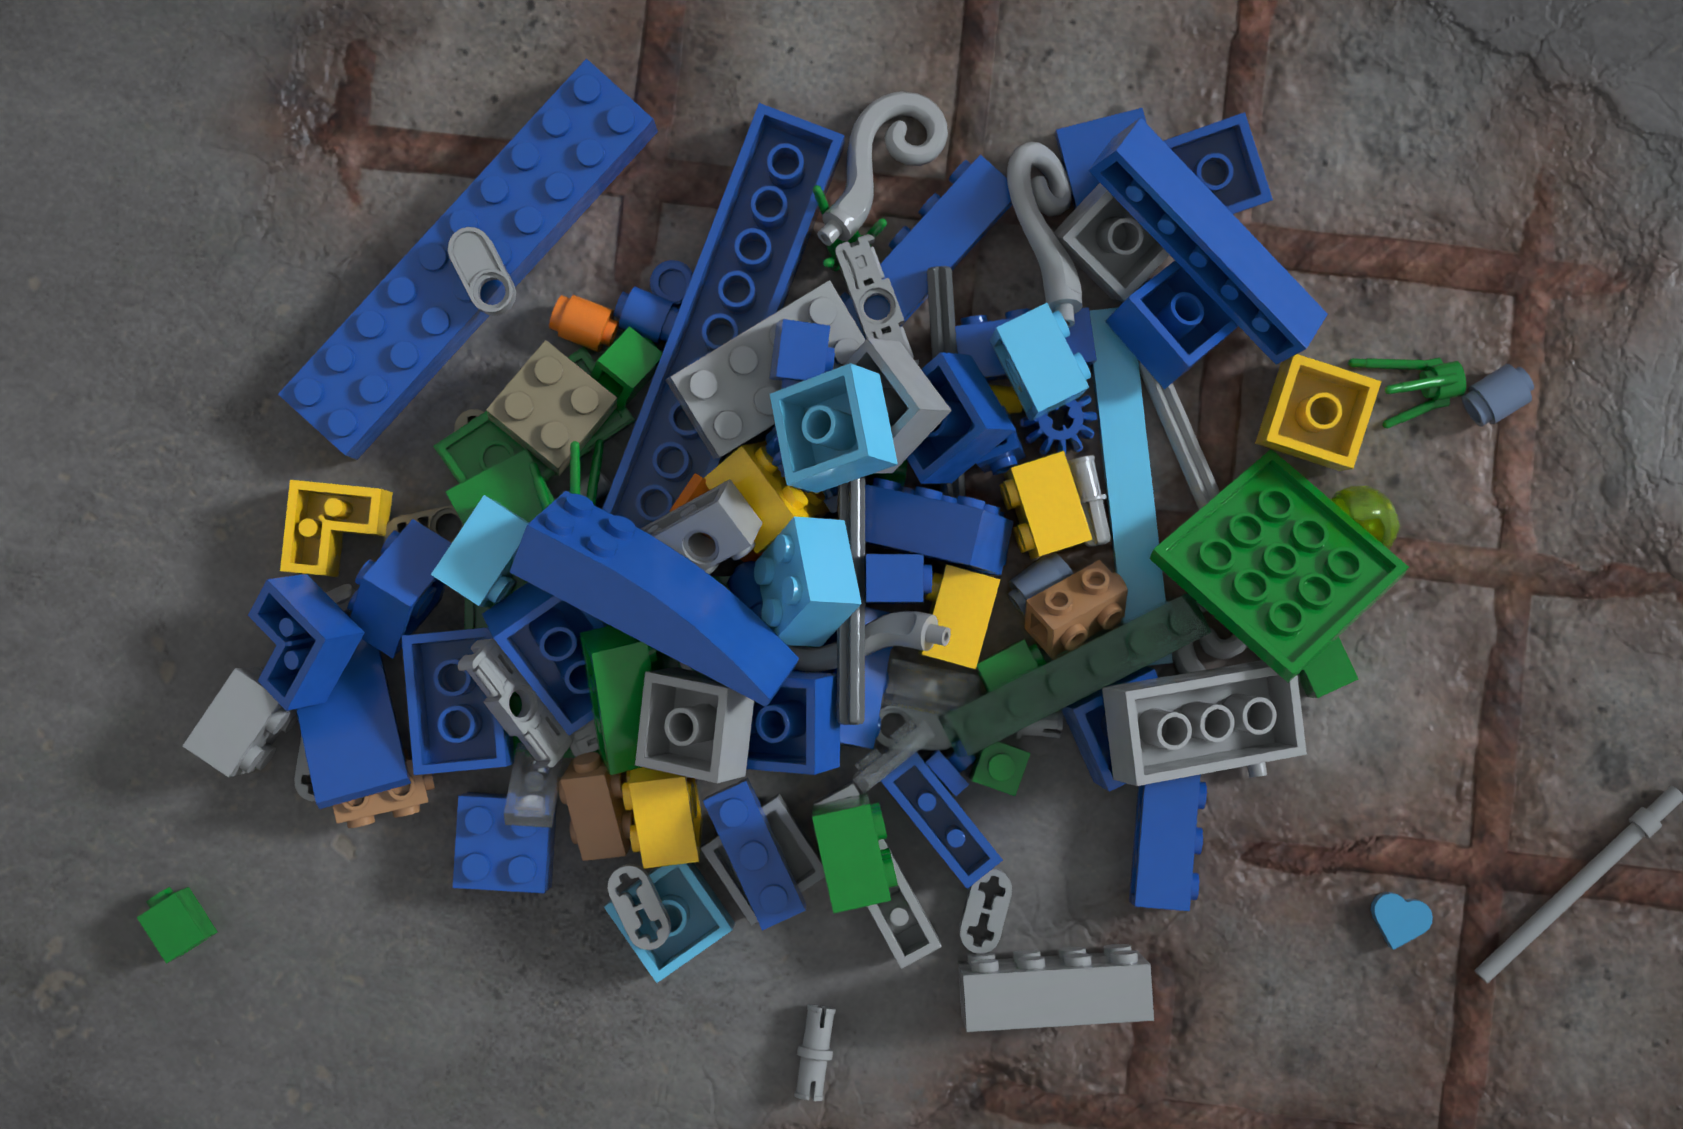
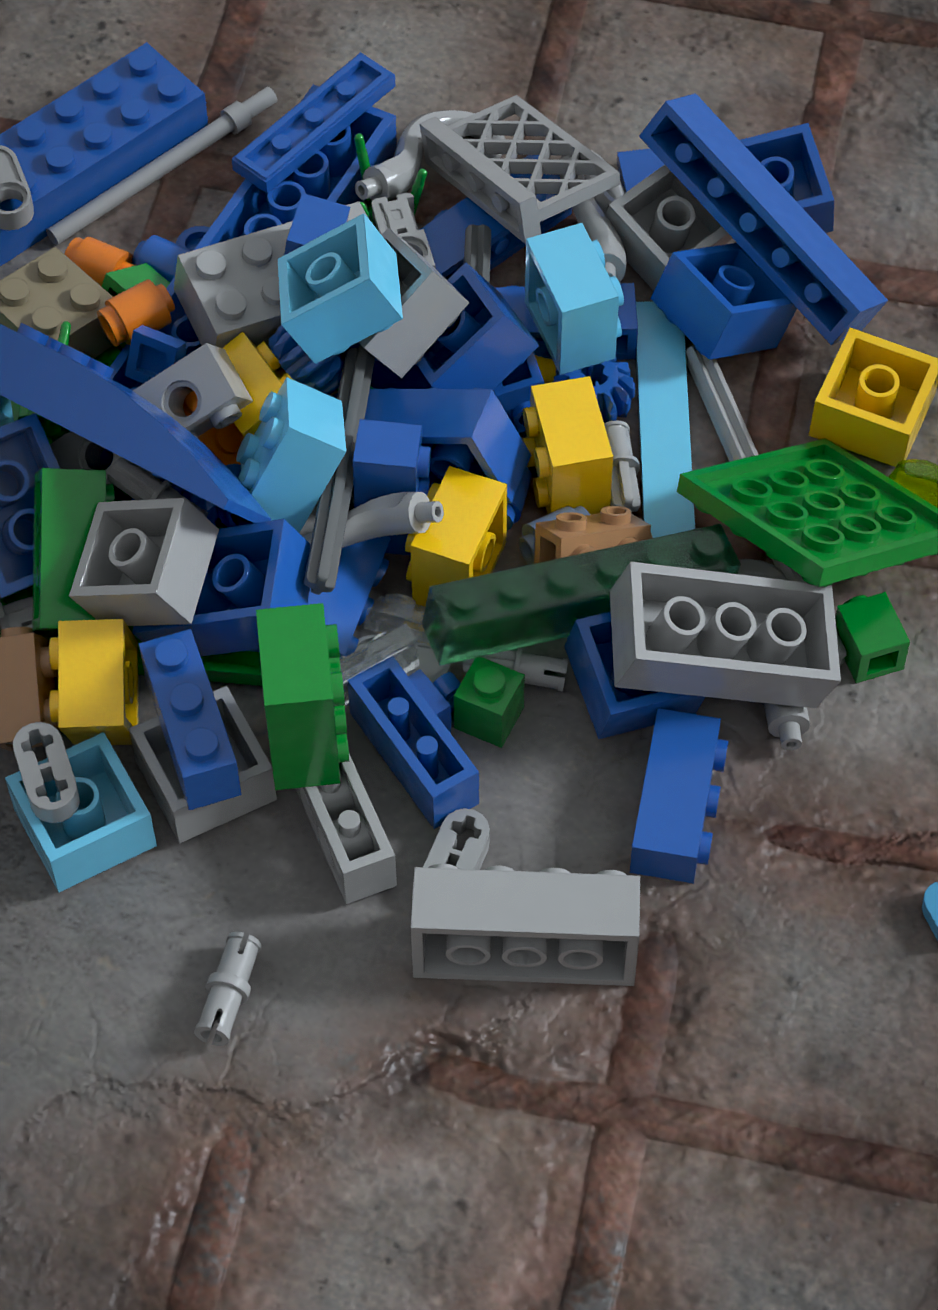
camera: 10 degrees right, 30 degrees down
(636, 416) = (136, 307): none -> orange brick
(663, 468) = (152, 353): none -> blue tile
(681, 122) = (233, 119): none -> light grey bar
(768, 156) = (313, 122): none -> blue tile
(939, 212) = (489, 180): none -> light grey fence

